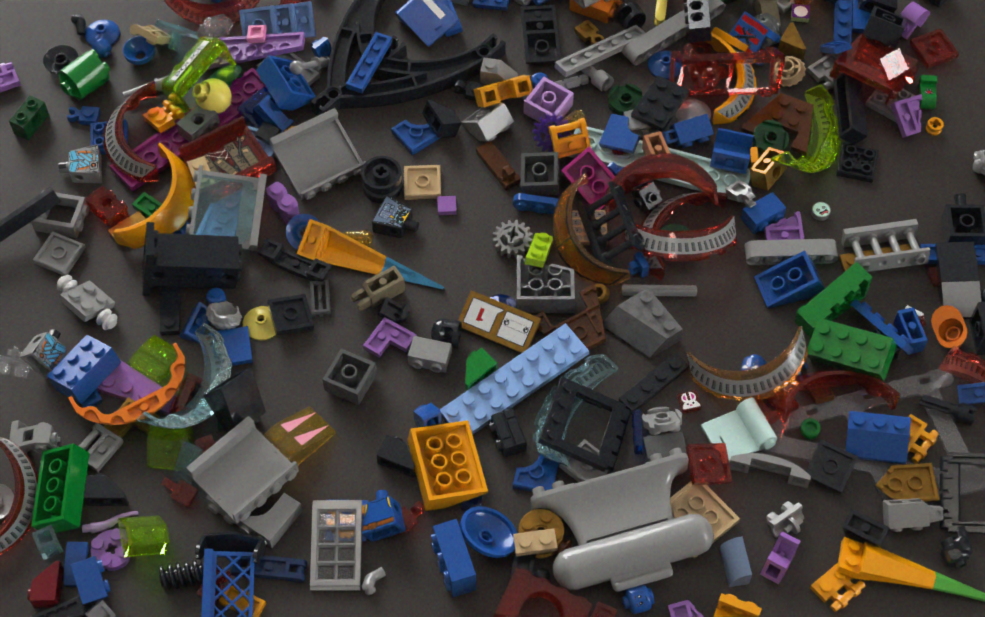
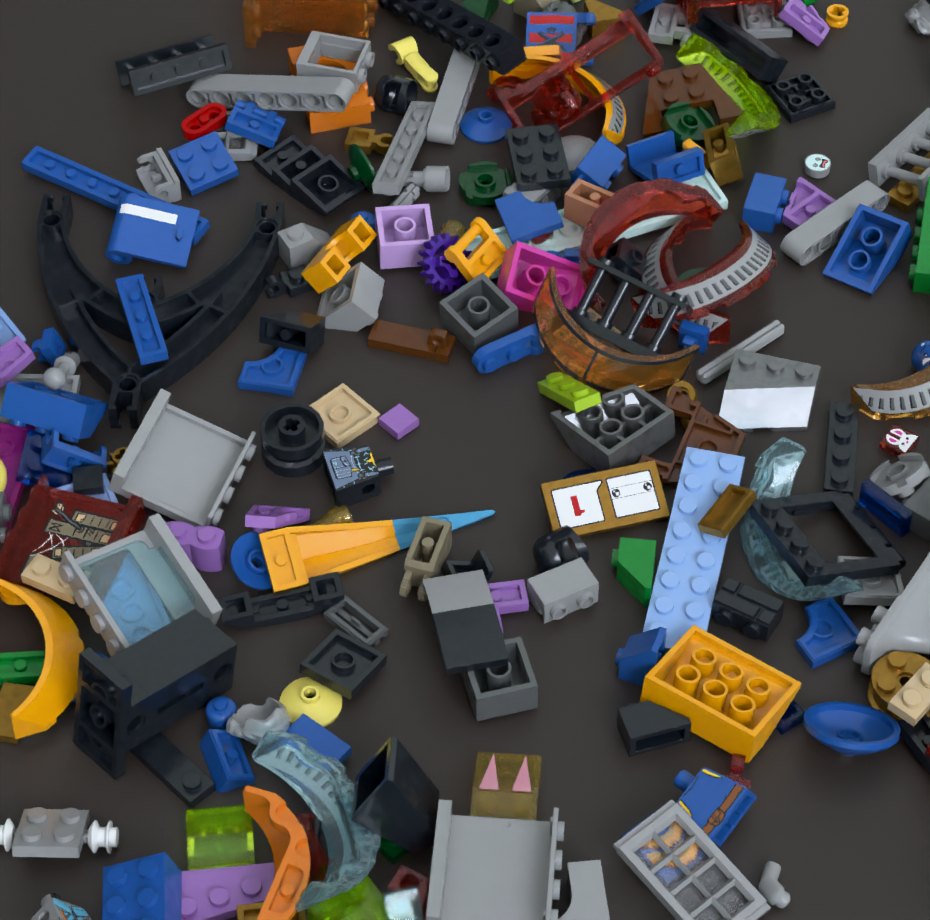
camera: 40 degrees left, 10 degrees down
(332, 213) = (267, 517): none -> medium lavender wing
(357, 335) = (465, 622): none -> black slope
(453, 558) = (847, 782): blue brick -> none
(504, 235) = (519, 404): light grey gear -> none
(544, 373) = (727, 511): none -> pearl gold tile
(563, 48) = (361, 167): none -> dark green dish
(741, 191) = (726, 190): light grey plate -> none
(792, 71) = (628, 54): tan piece -> none

